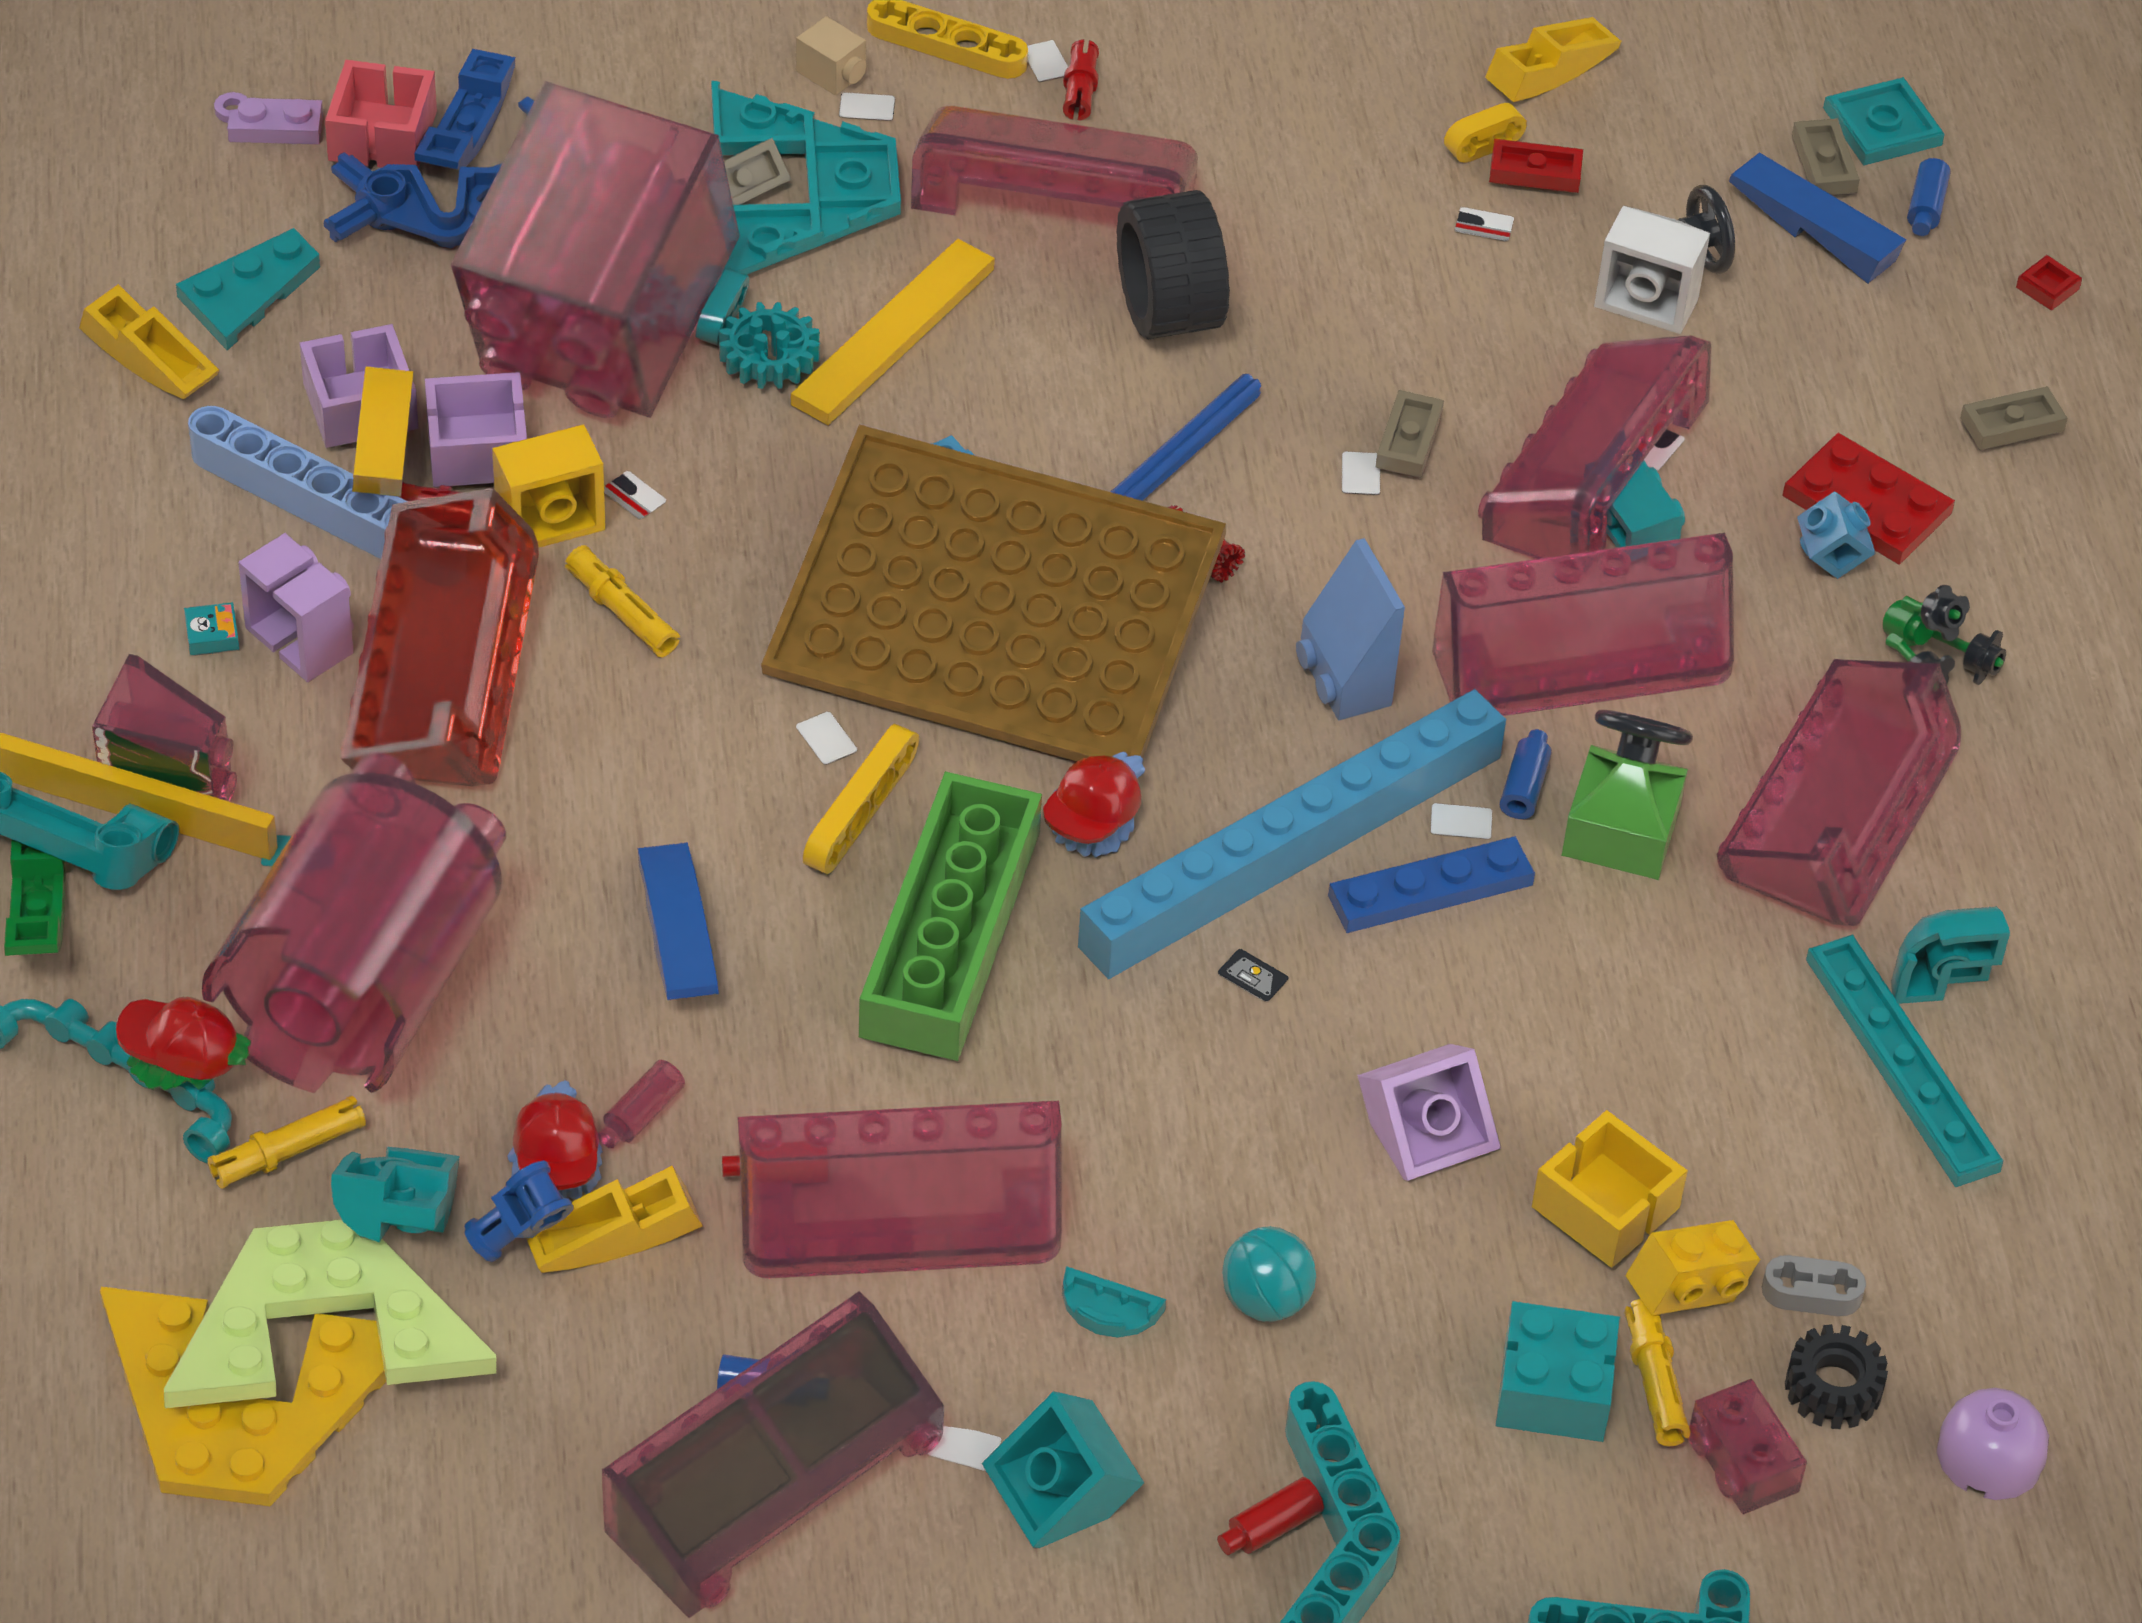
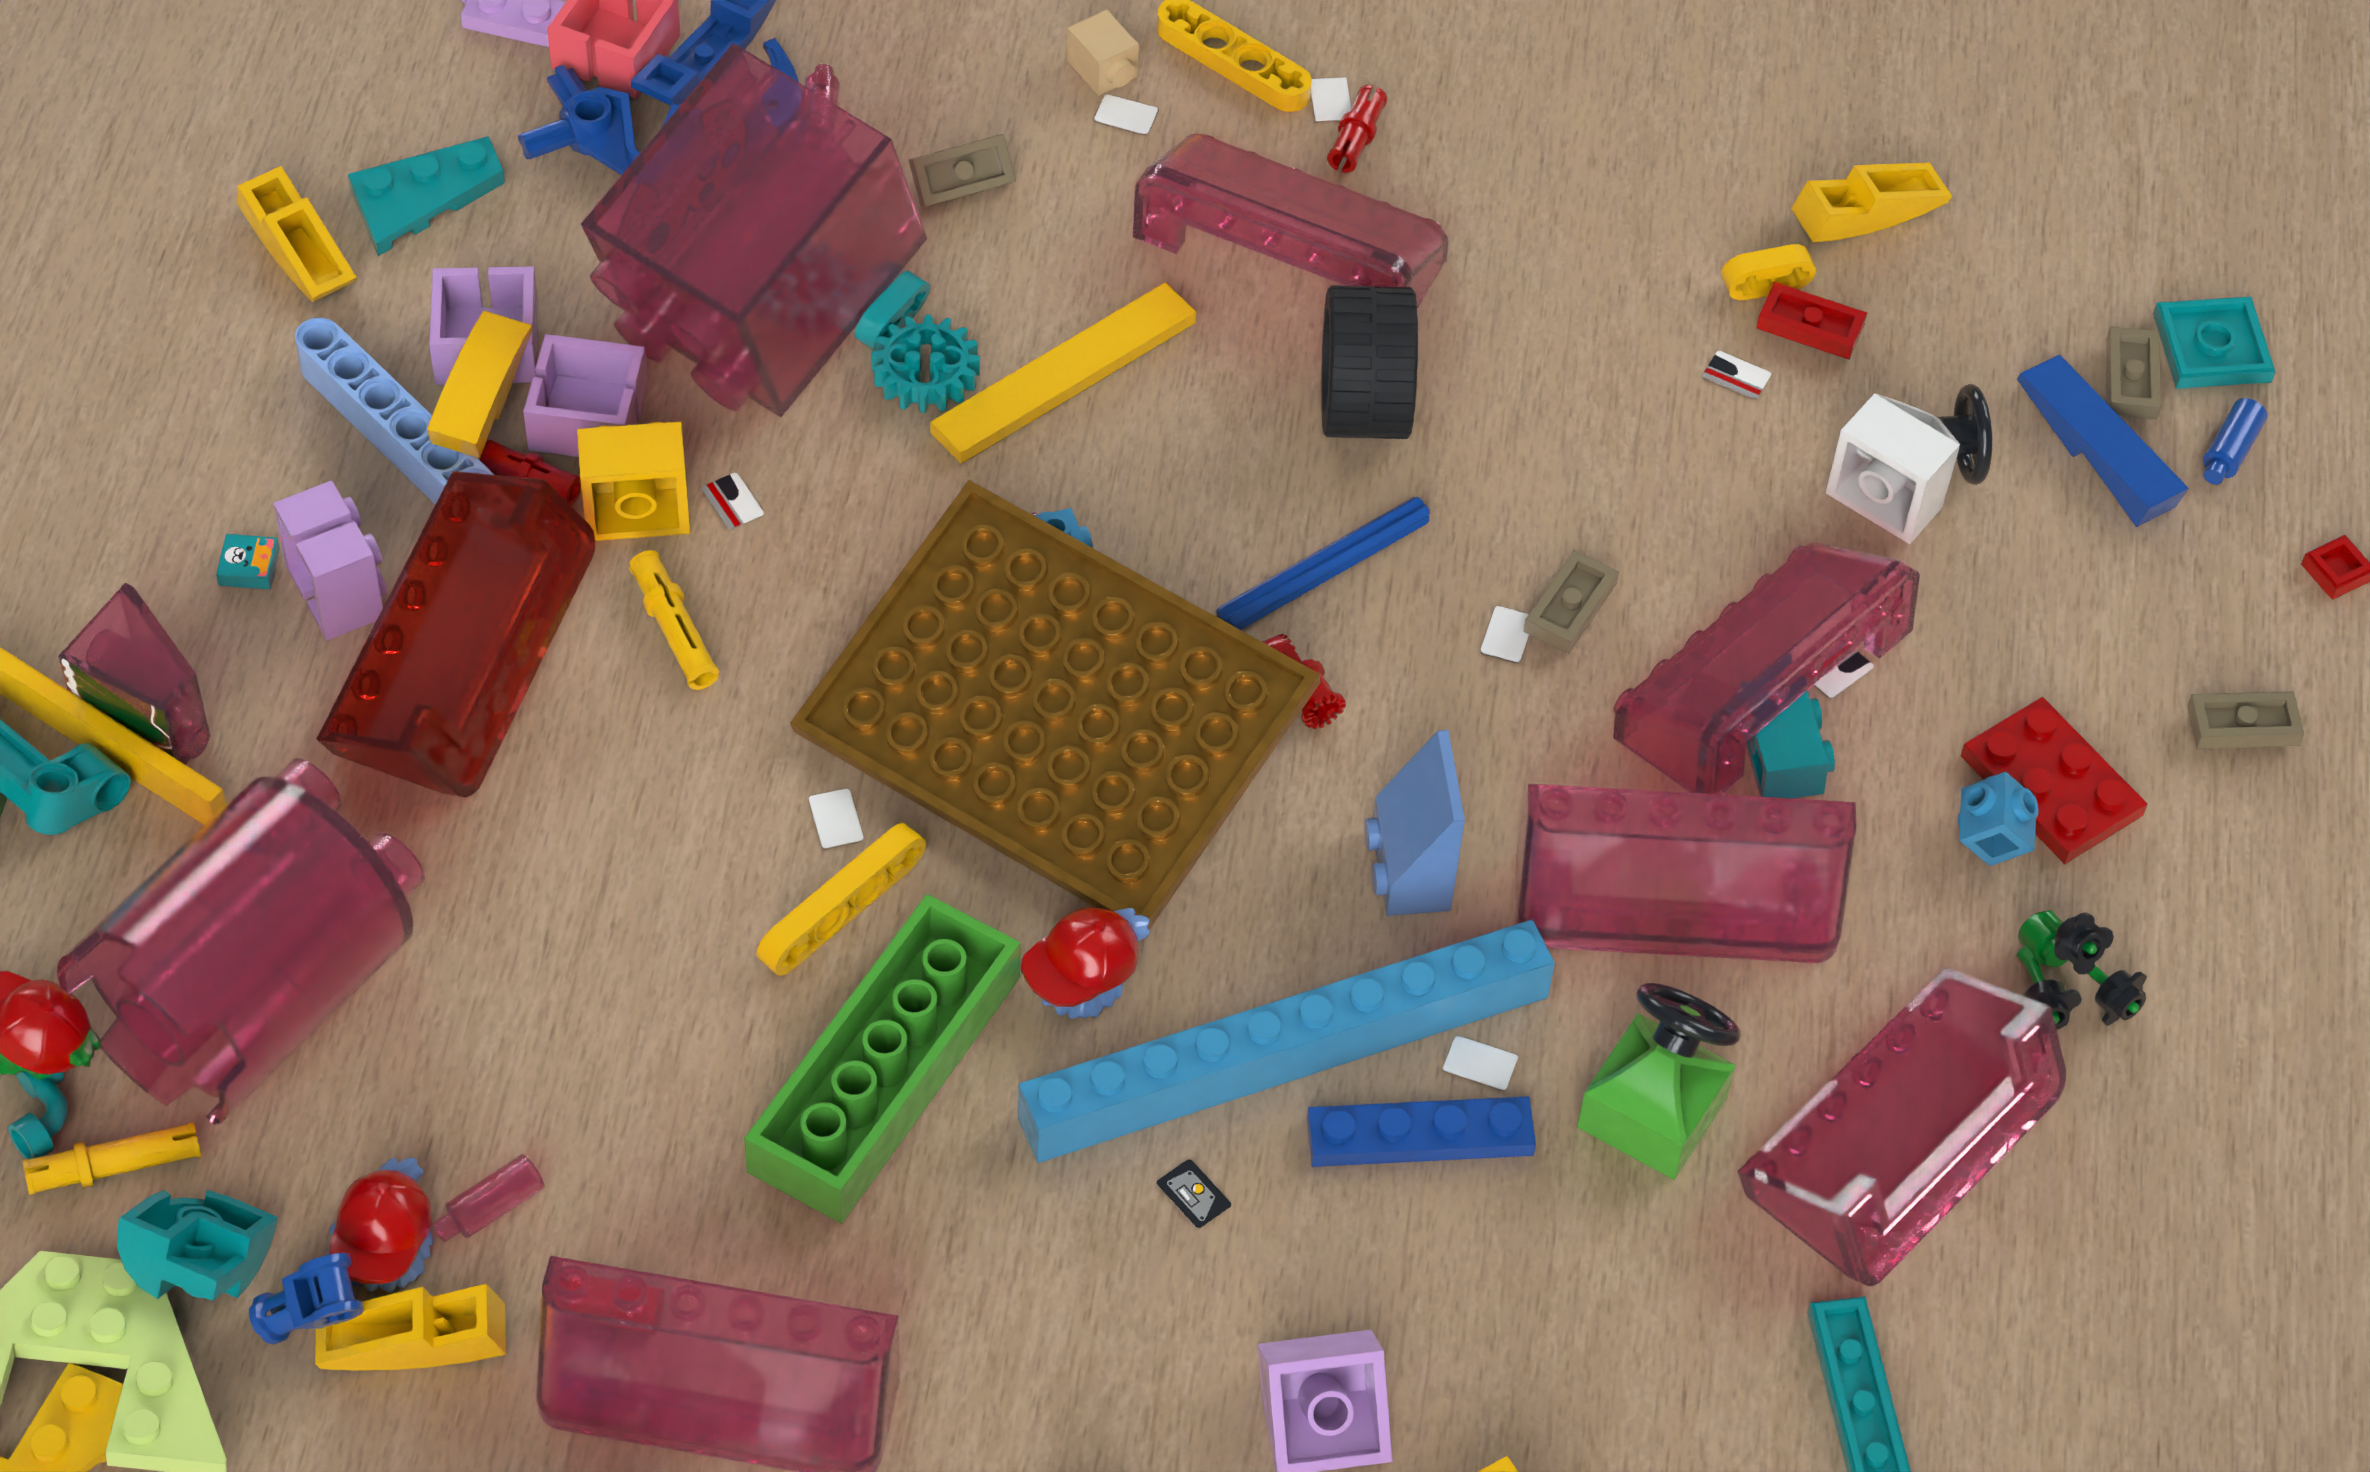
camera: 15 degrees right, 5 degrees up
(677, 921) = (599, 999): blue slope -> none
(848, 178) = (1072, 199): teal wing -> none
(1526, 775) = (1565, 1027): blue cylinder -> none
(1949, 950) = (1959, 1342): teal brick -> none

